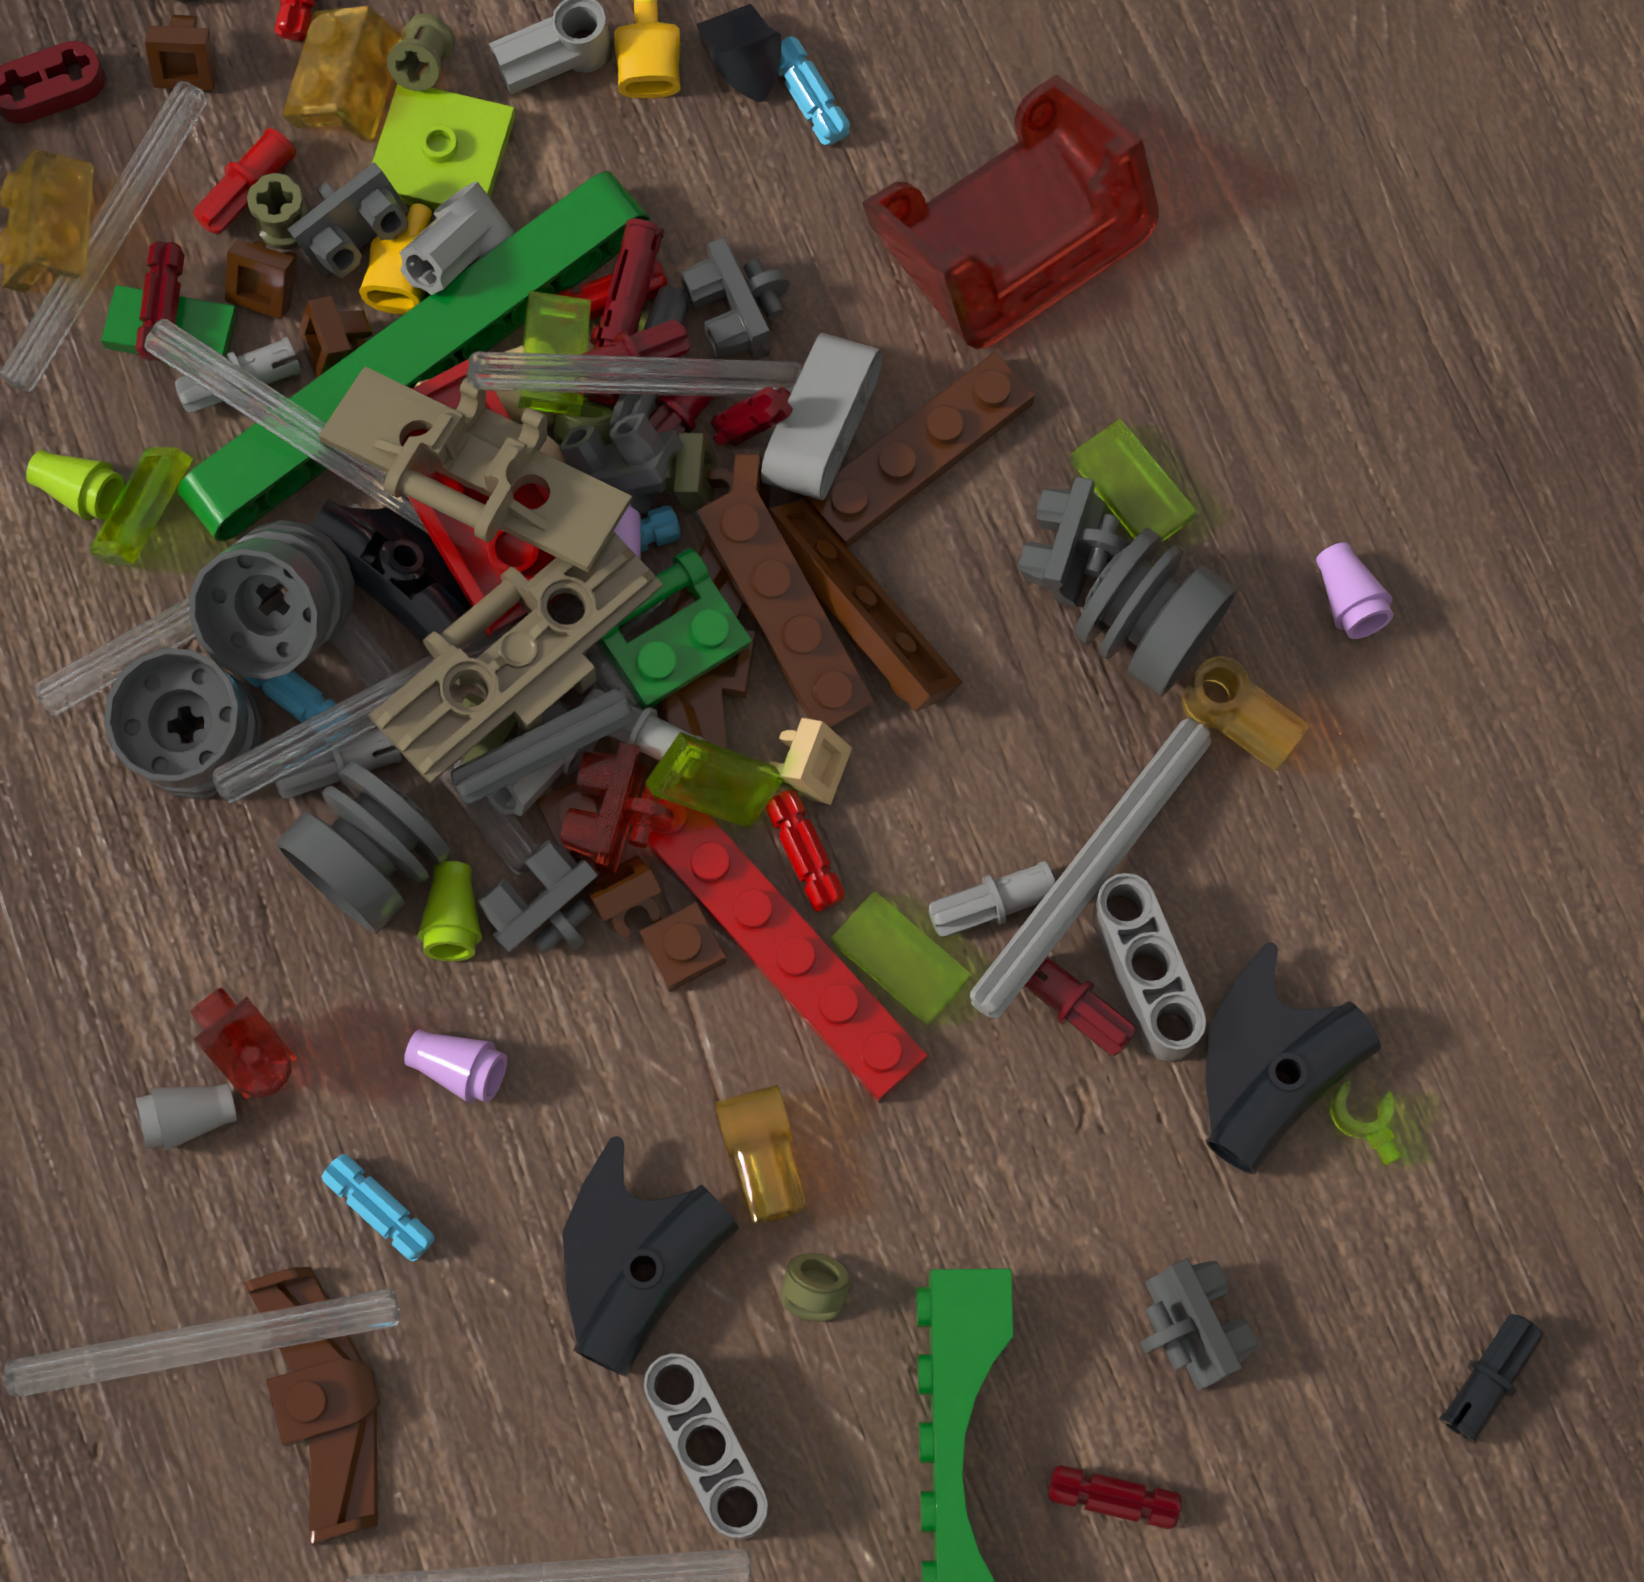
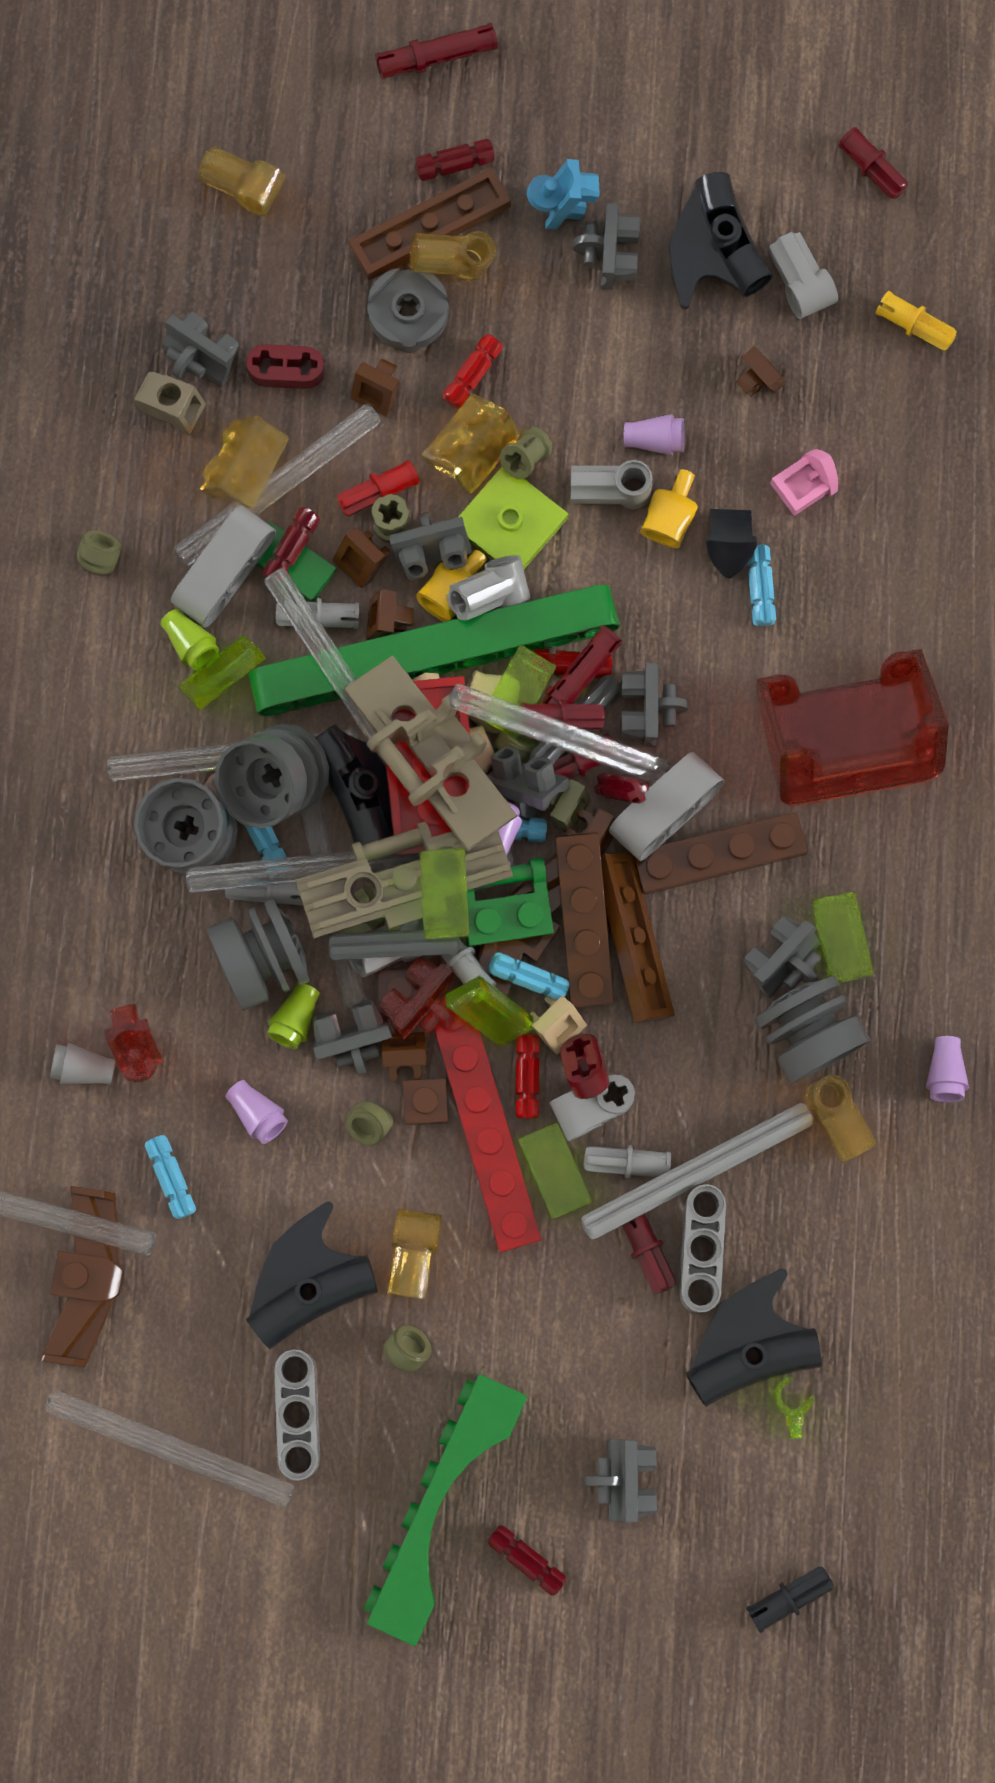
camera: 25 degrees right, 5 degrees up
(79, 366) = (223, 566): none -> light grey beam
(581, 642) = (444, 893): none -> clear neon green tile
(618, 1008) = (368, 1122): none -> olive tile
(743, 714) = (528, 976): none -> medium azure axle
(876, 796) = (579, 1066): none -> dark red beam
(904, 851) = (585, 1115): none -> light grey piece

